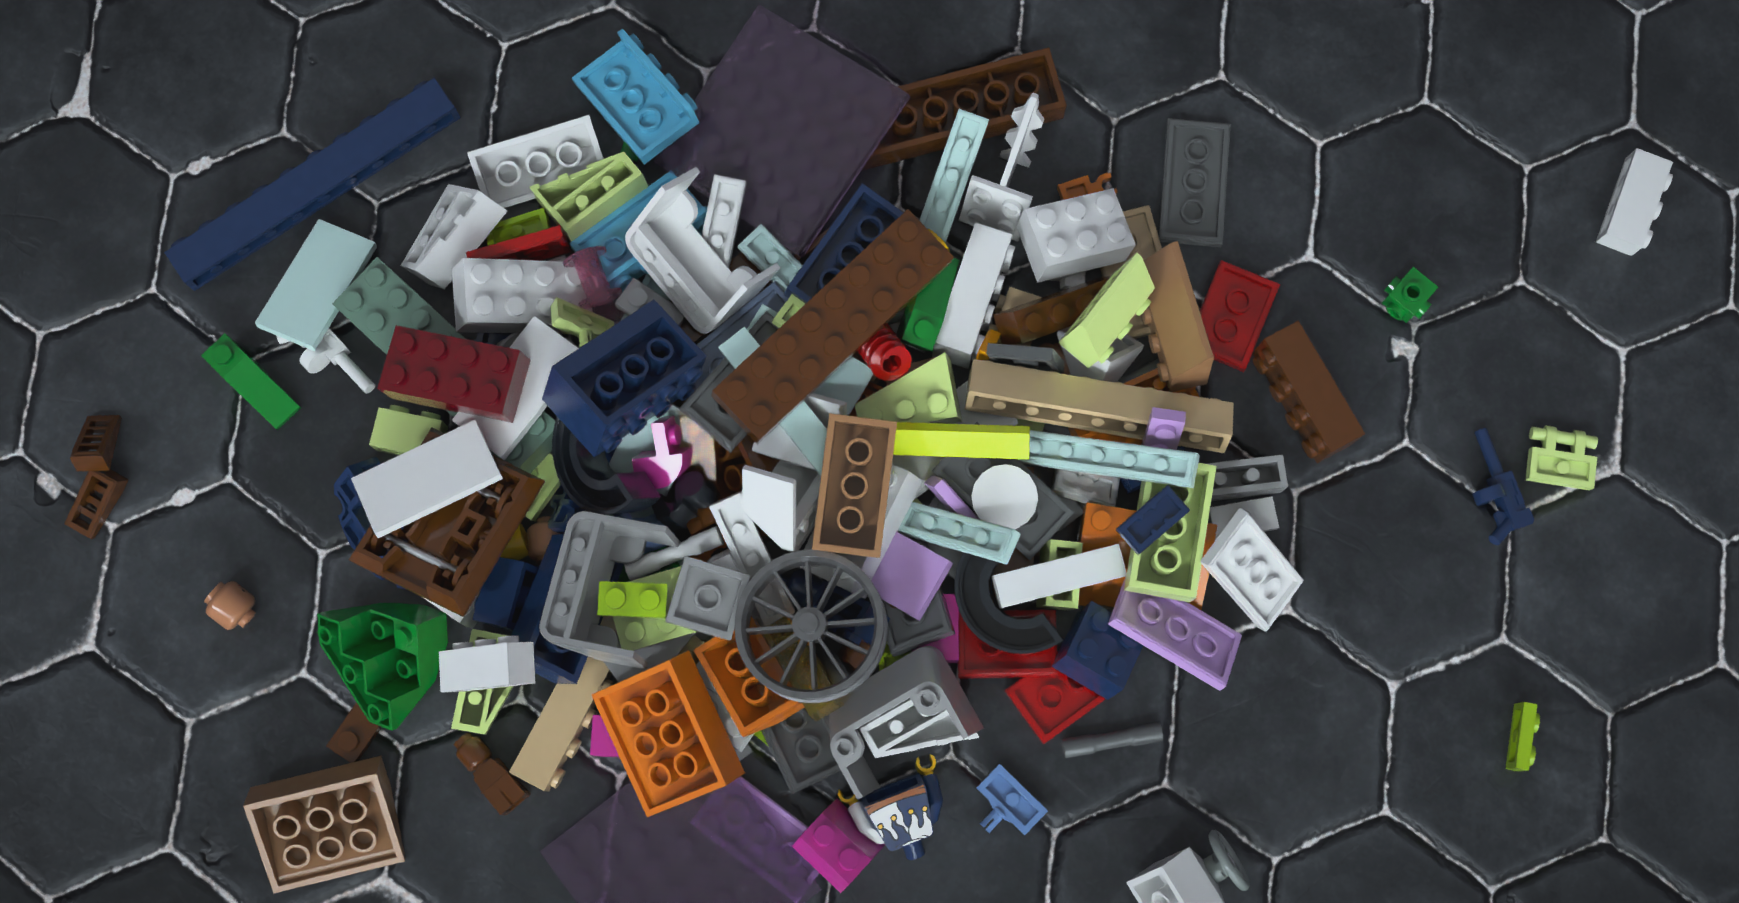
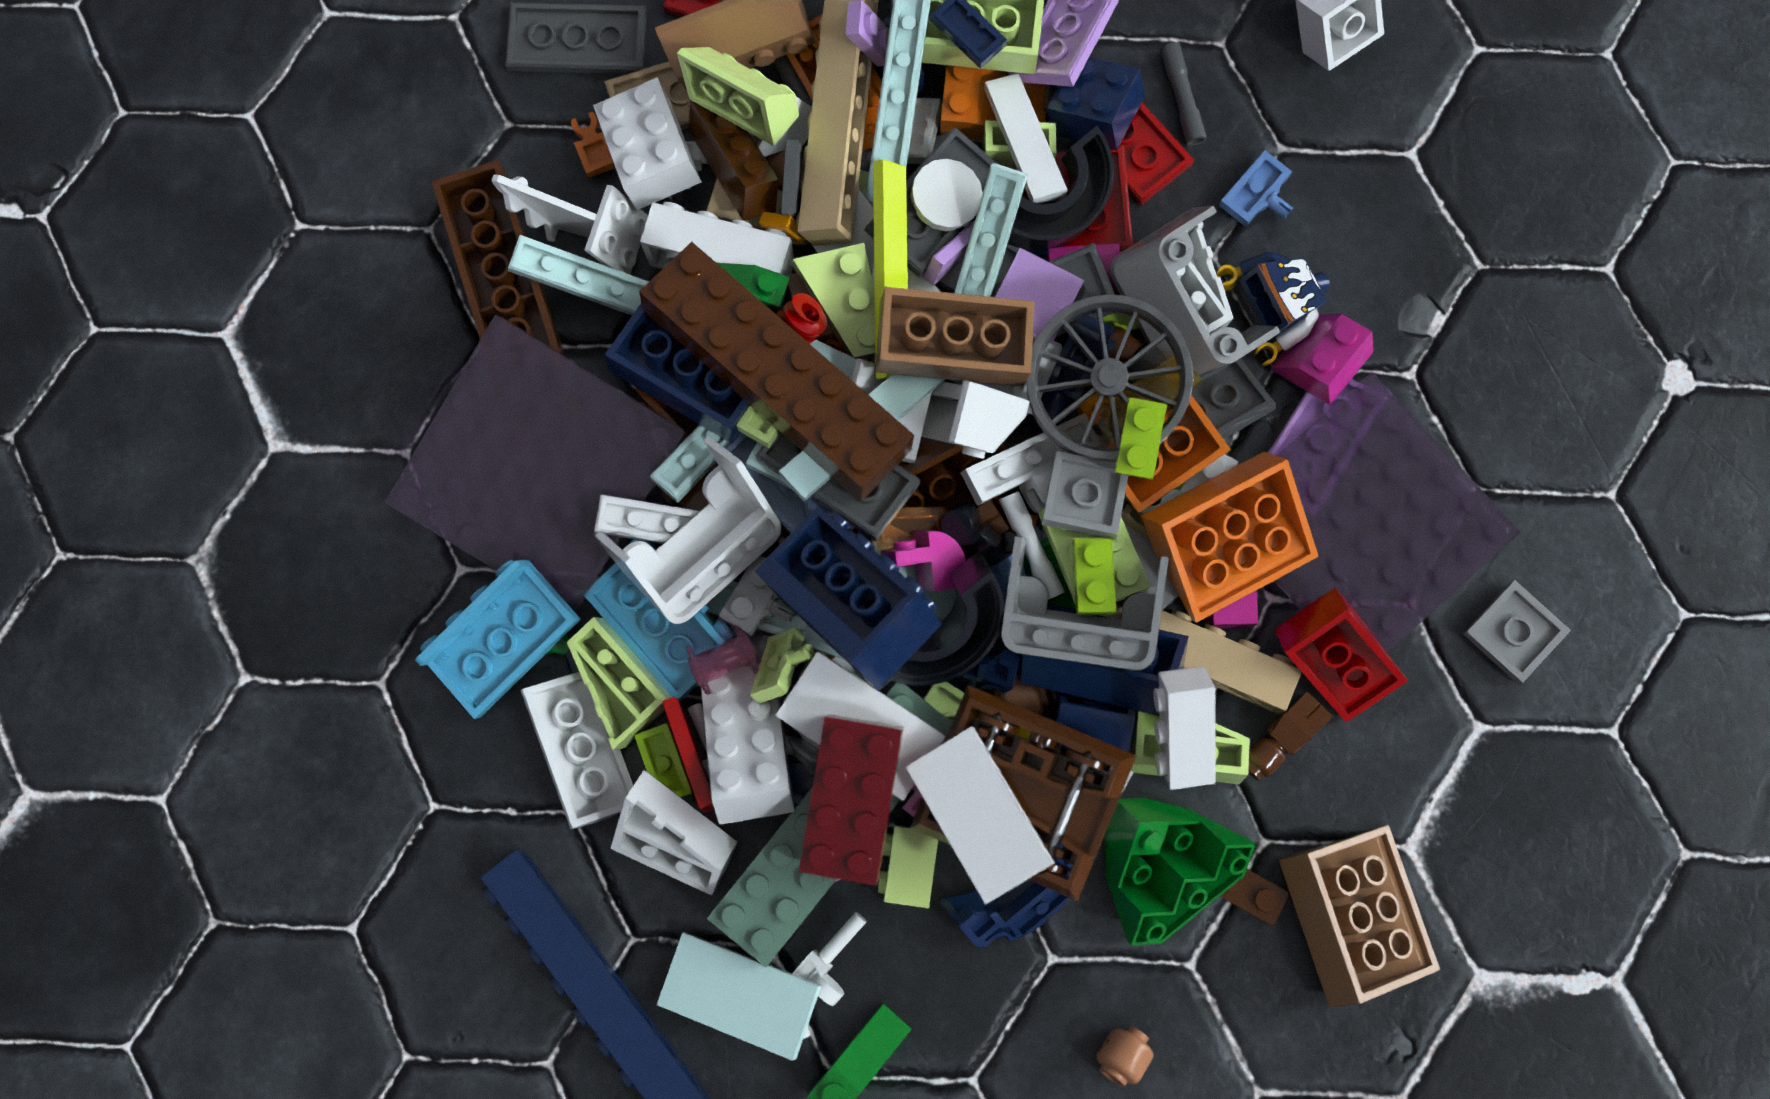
camera: 90 degrees left, 0 degrees up
(554, 825) = (1339, 655): none -> red slope
(748, 646) = (1140, 438): none -> lime plate

